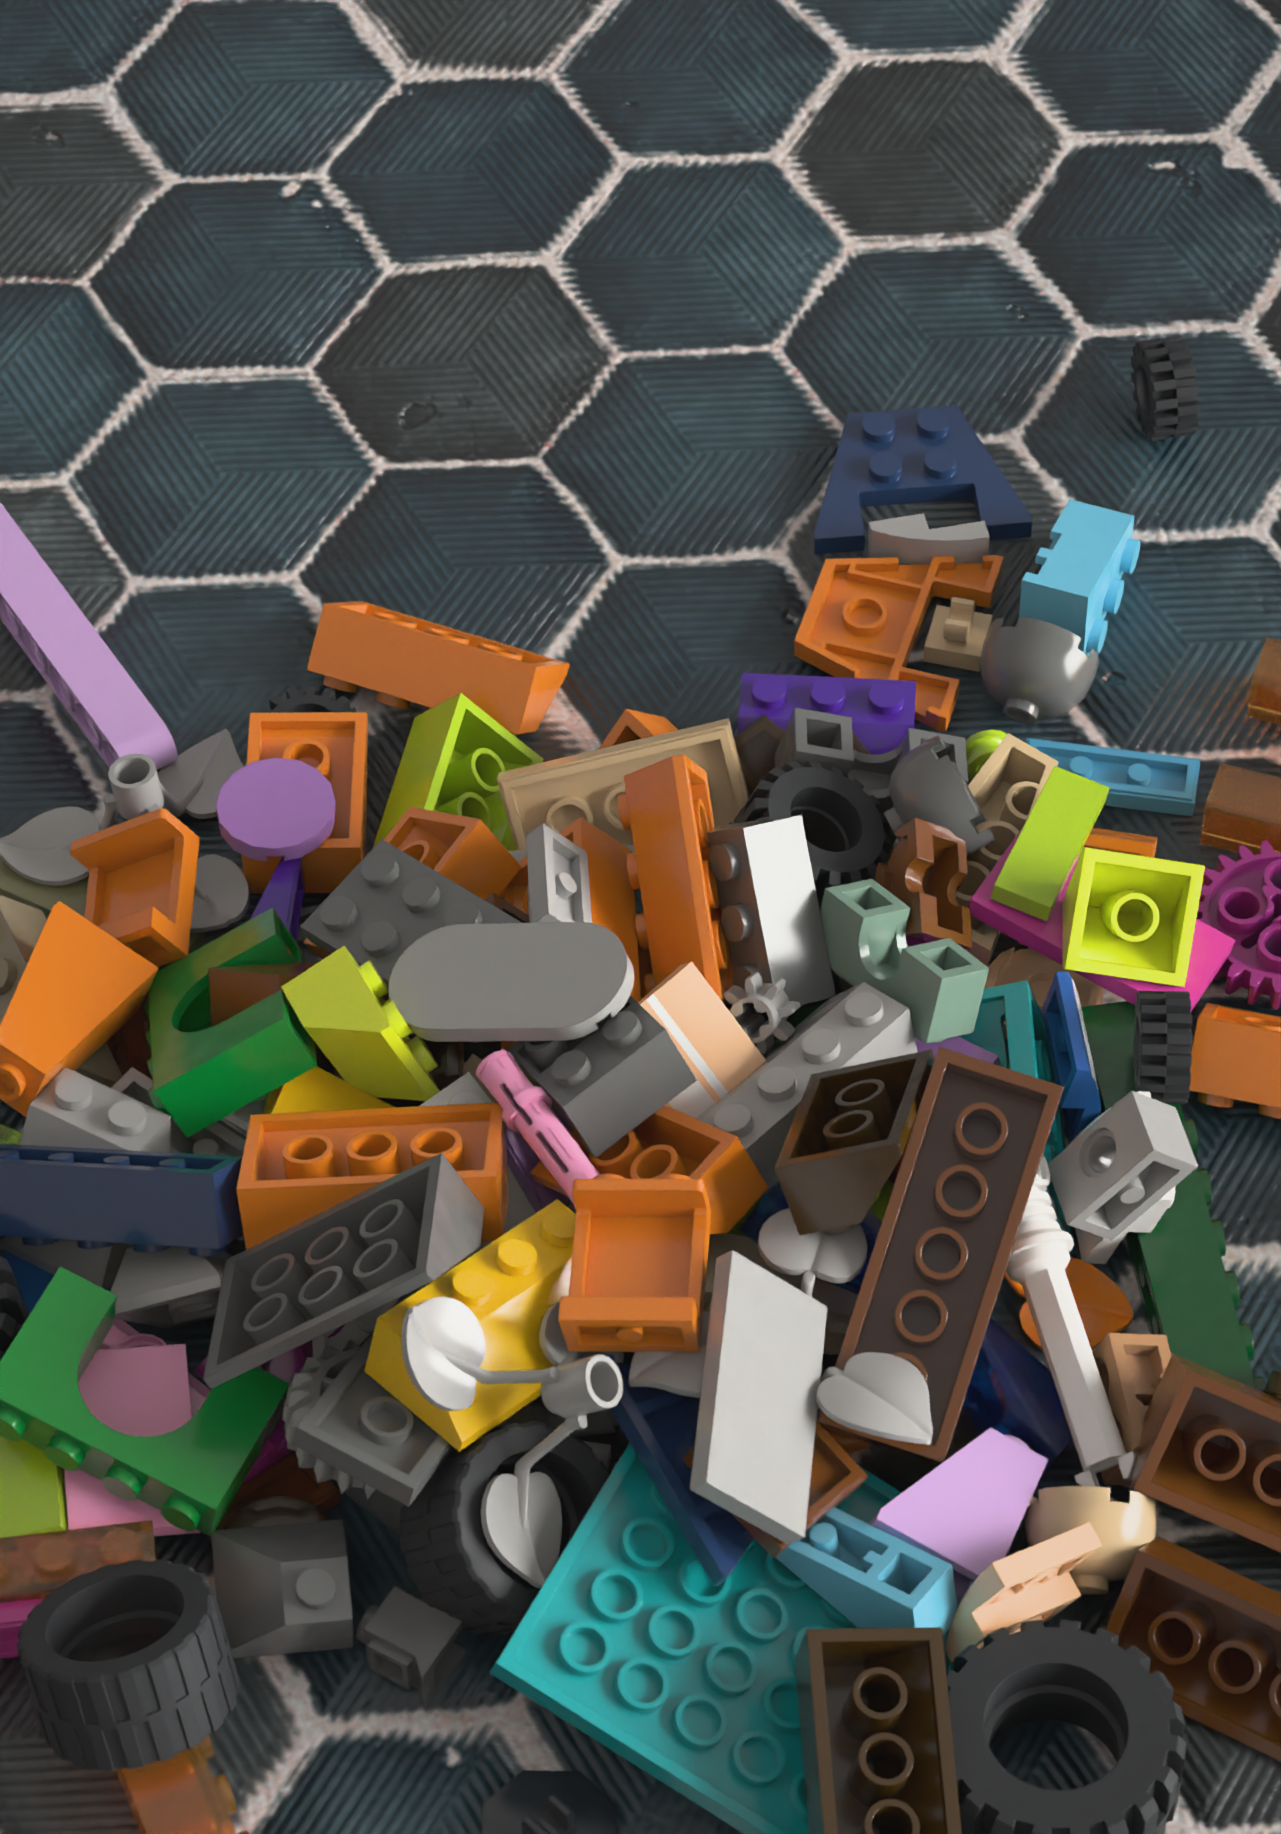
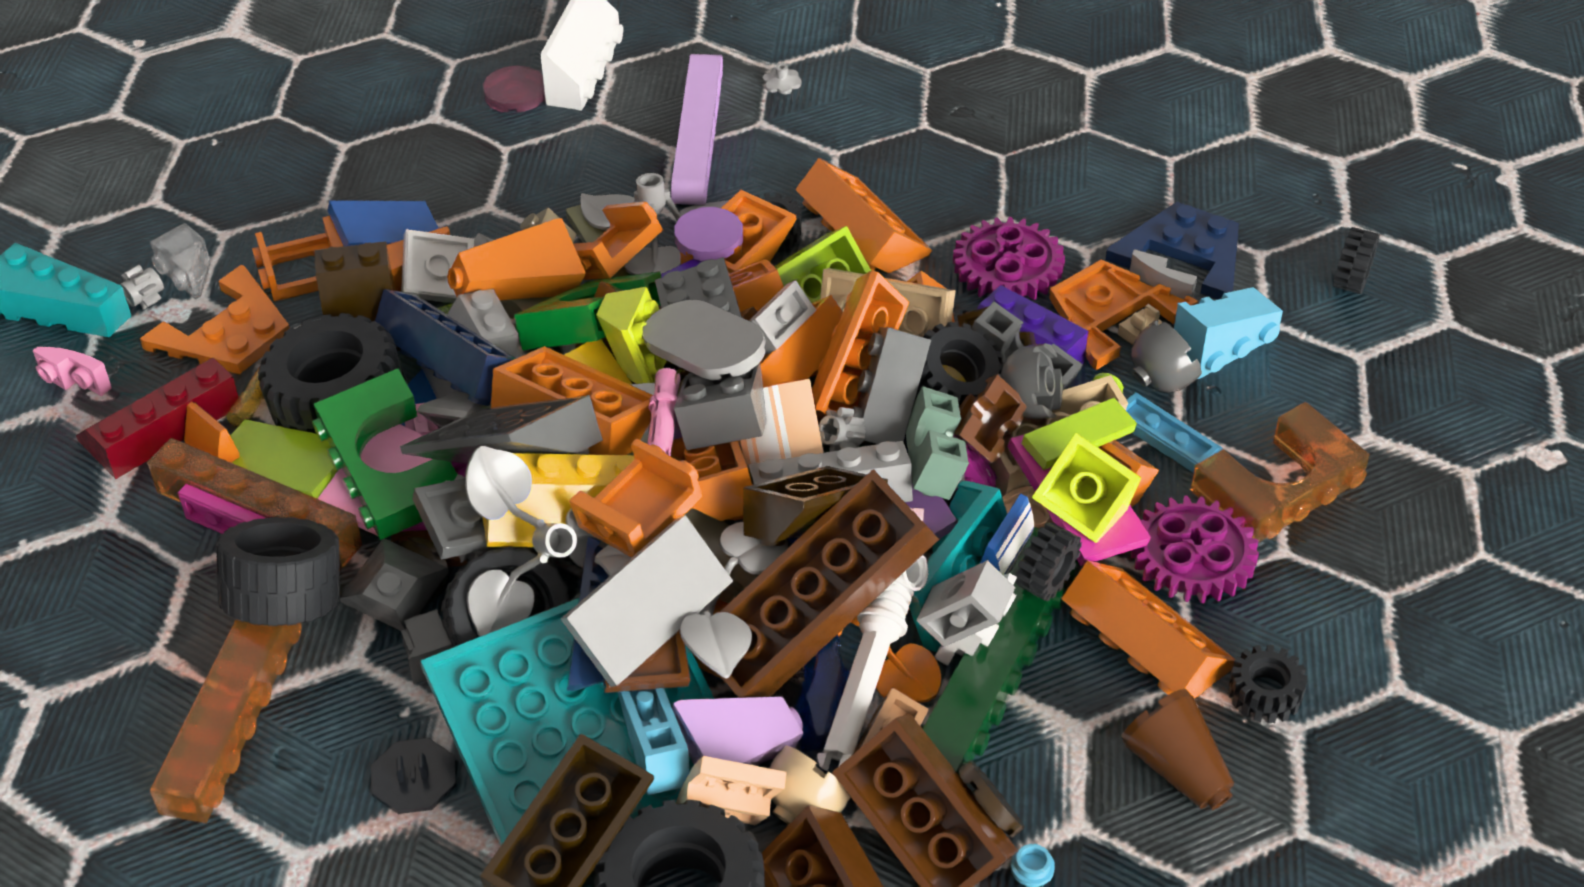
camera: 35 degrees right, 5 degrees down
(103, 494) = (782, 79): none -> light grey plant
(659, 610) = (1009, 257): none -> magenta gear

